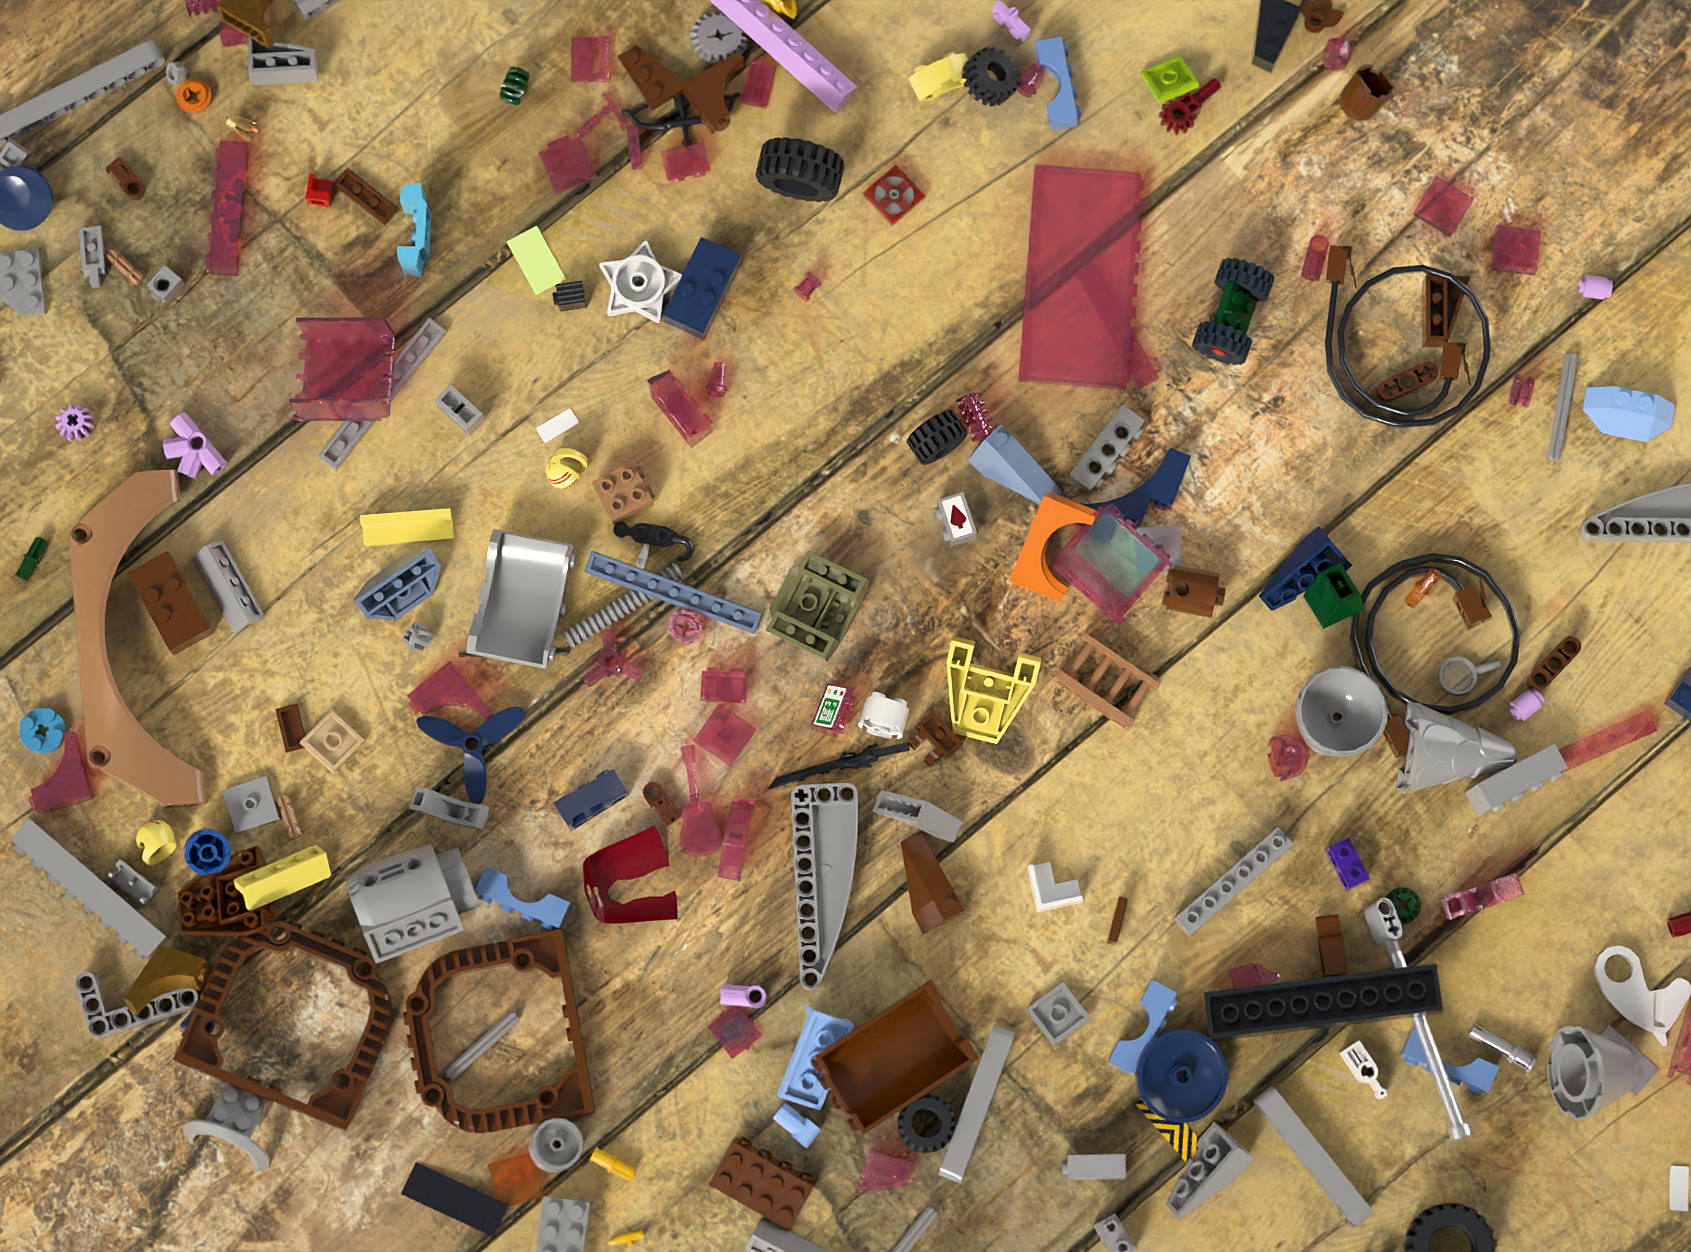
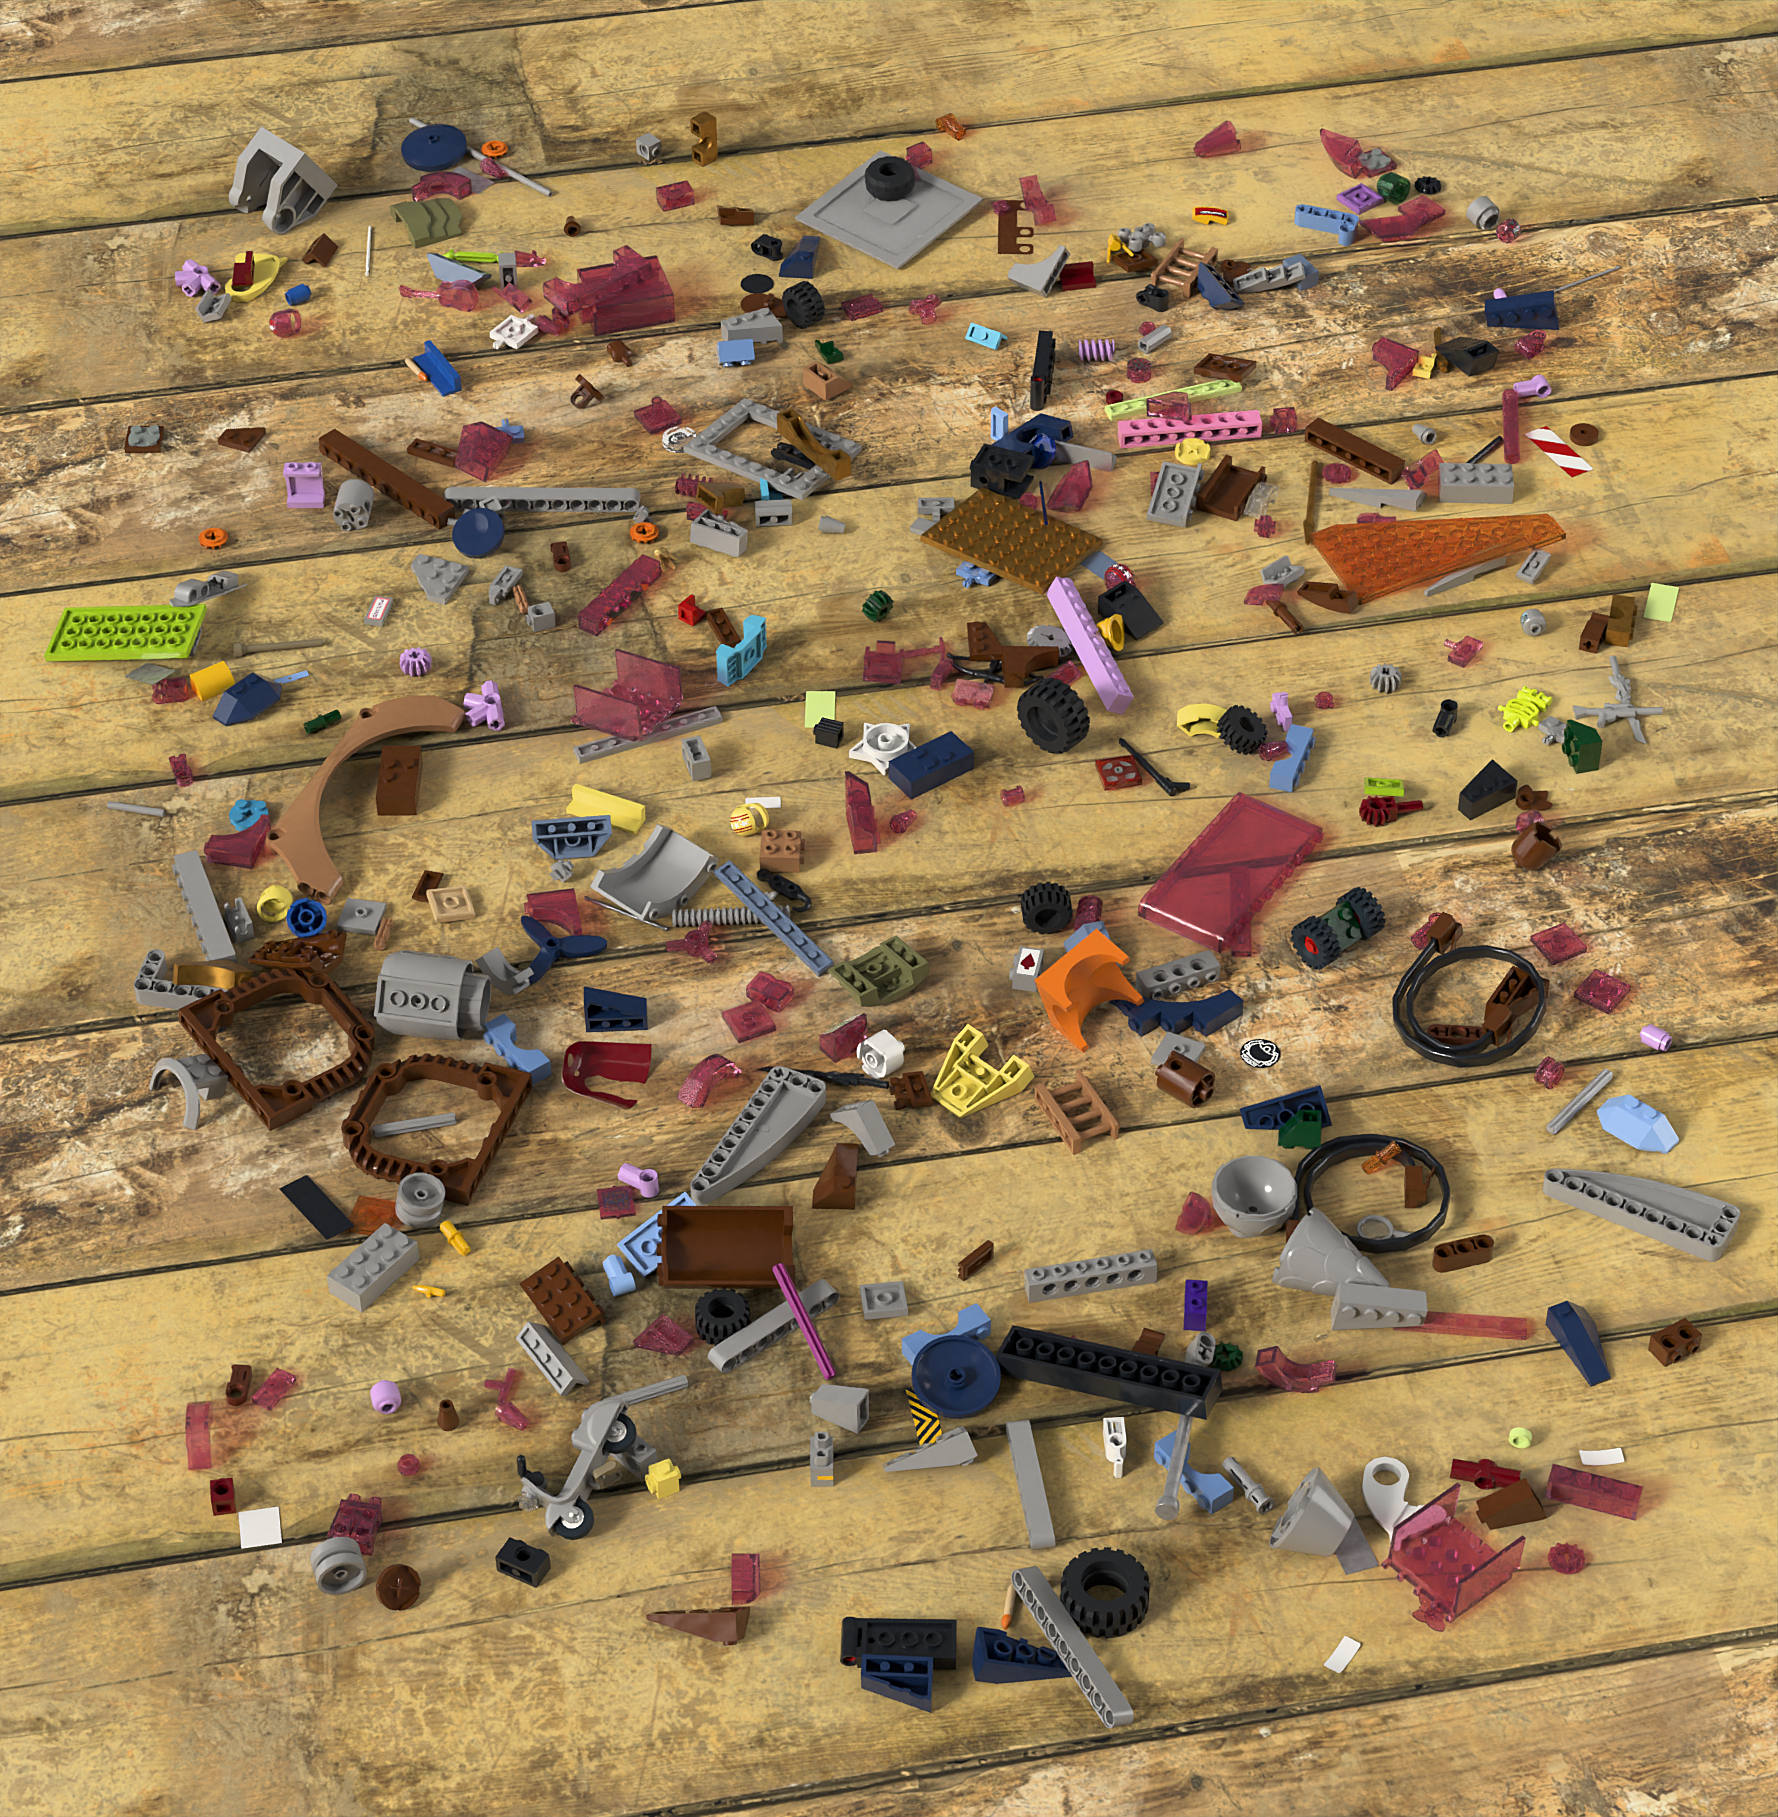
camera: 30 degrees right, 35 degrees down
(228, 586) = (448, 789): light grey panel -> none
(283, 877) = (347, 956): light yellow panel -> none
(583, 59) = (941, 615): clear pink plate -> none
(663, 805) = (669, 1043): copper piece -> none
(677, 630) = (761, 949): clear pink gear -> none
(699, 831) = (687, 1057): clear pink piece -> none
(946, 183) = (1165, 783): none -> black piece
(1008, 1092) = (804, 1321): none -> magenta axle
(1047, 893) = (931, 1220): white panel -> none
(1110, 562) = (1130, 1035): clear light blue panel -> none
(1233, 503) = (1260, 1053): none -> black sticker
(1526, 704) = (1421, 1269): lavender brick -> none

